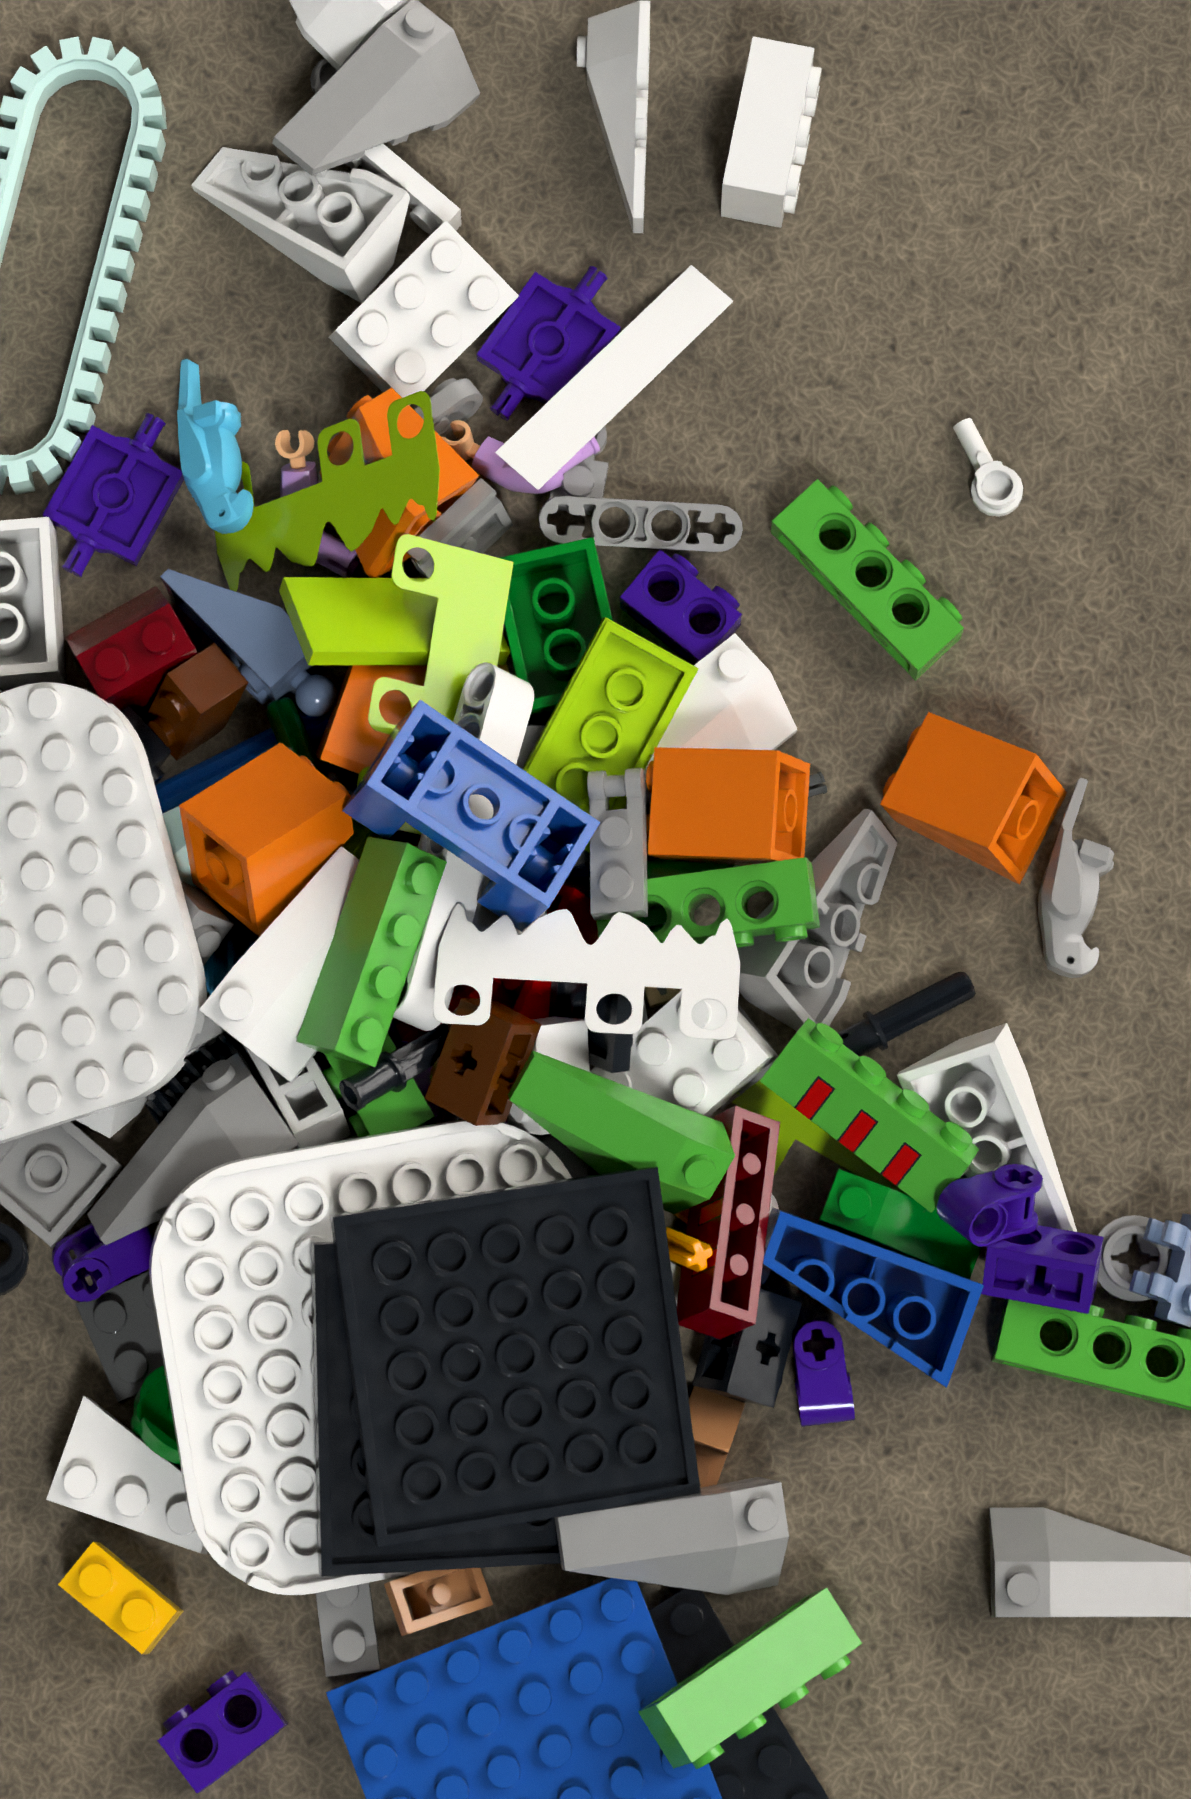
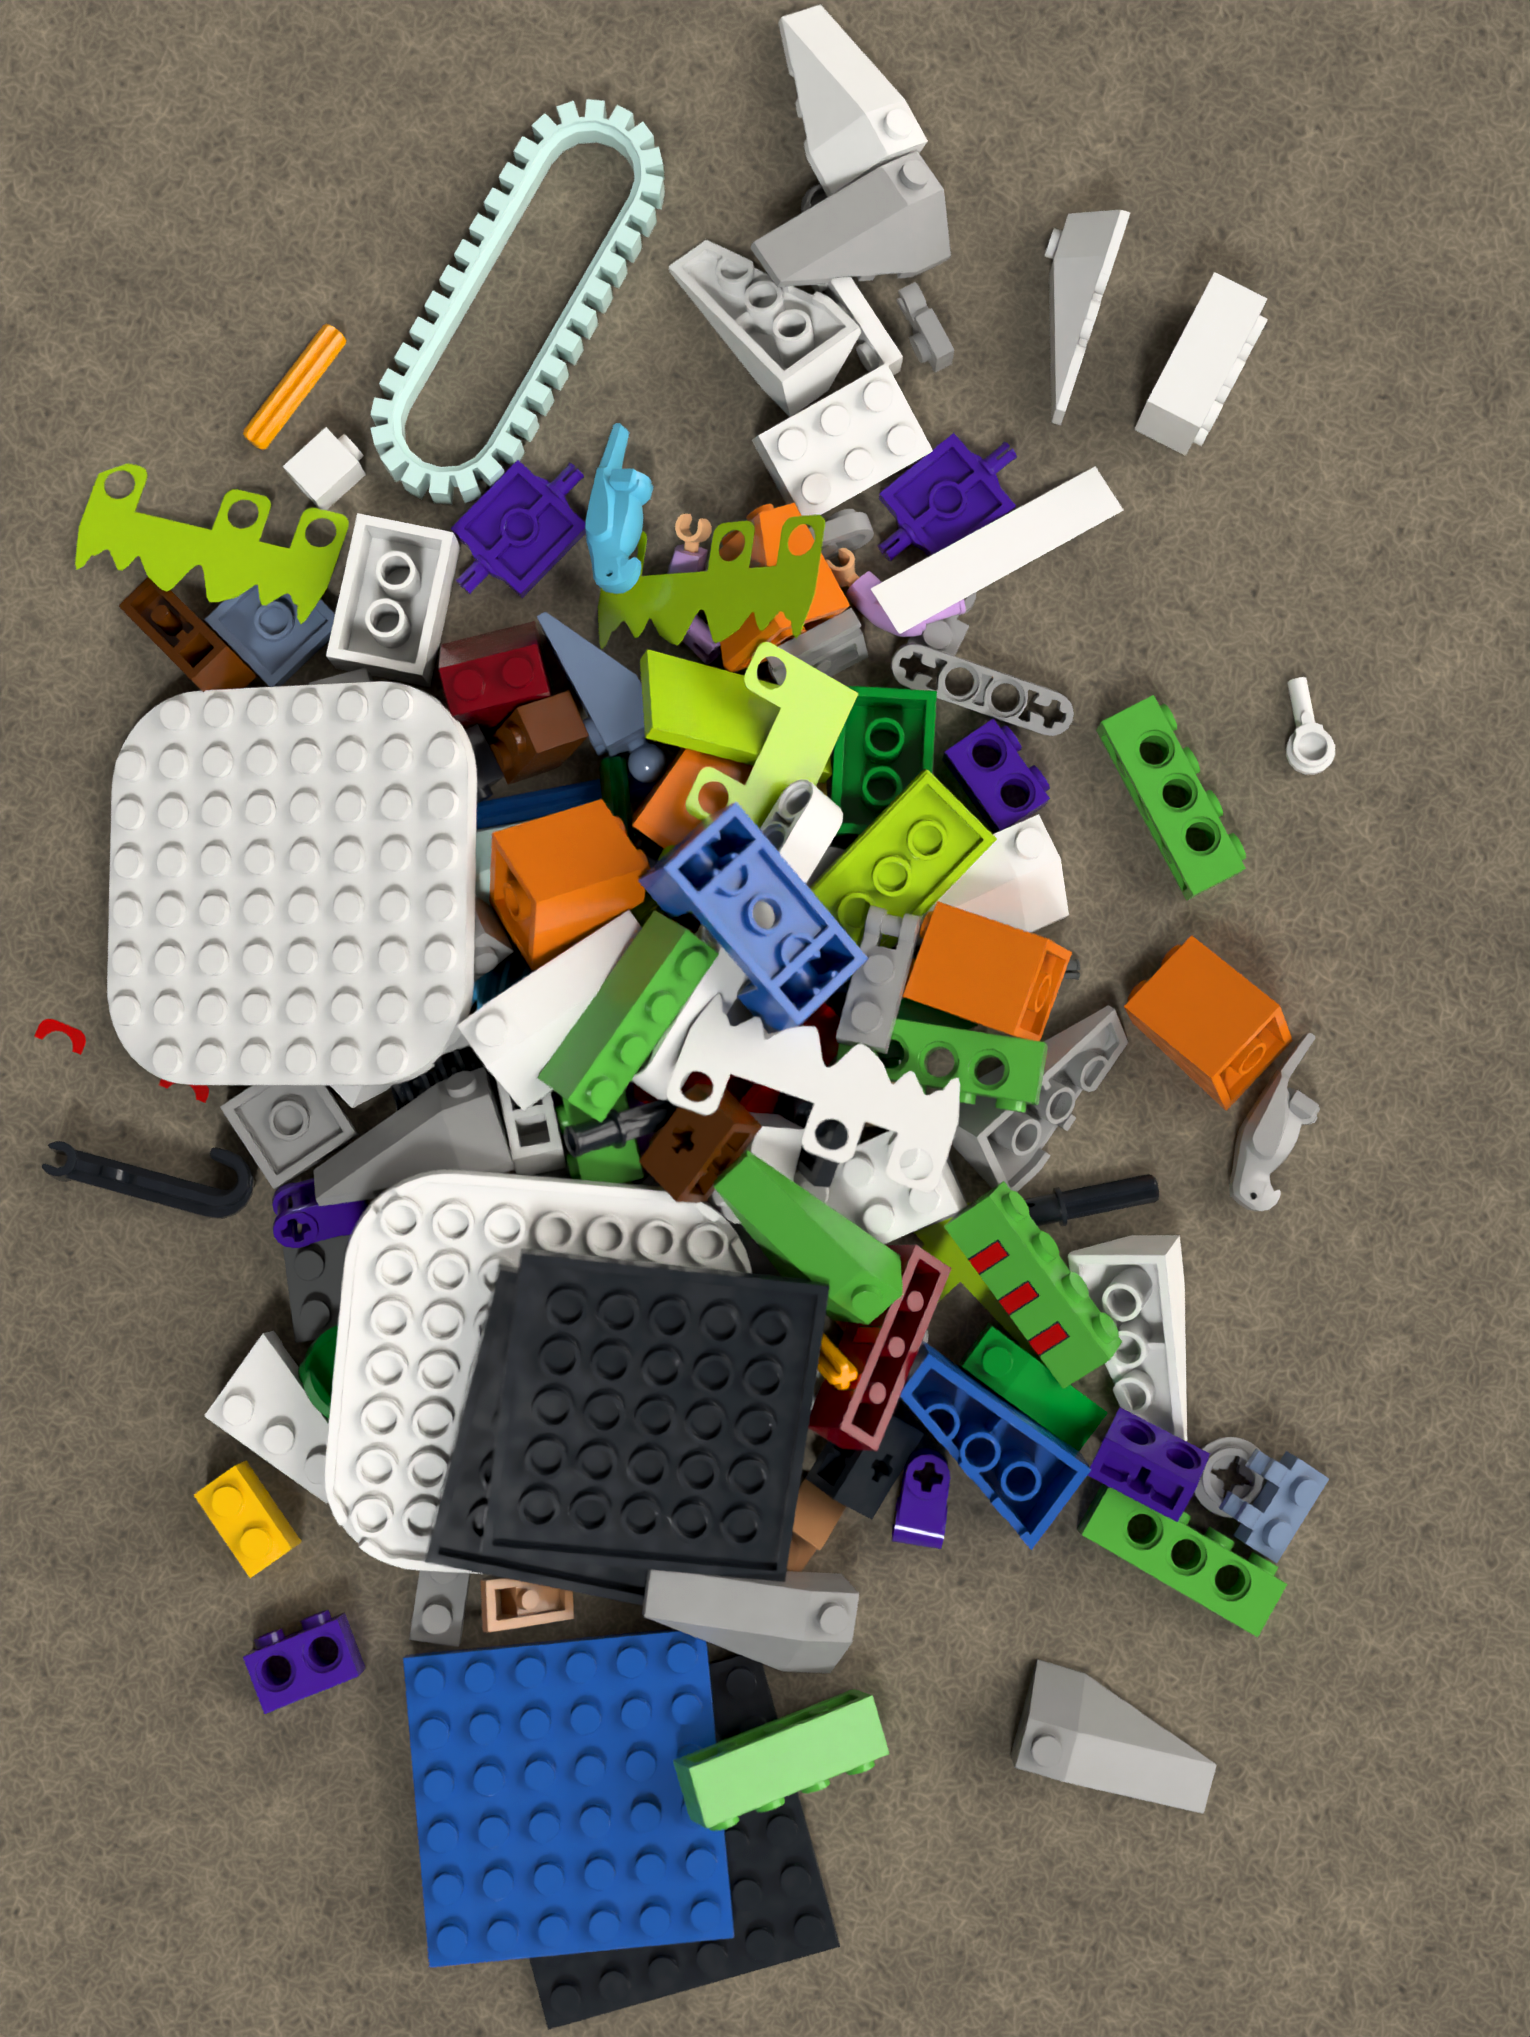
camera: 15 degrees right, 5 degrees up
(482, 183) = (929, 337): none -> light grey plate
(992, 1204) = (1120, 1398): dark purple piece -> none

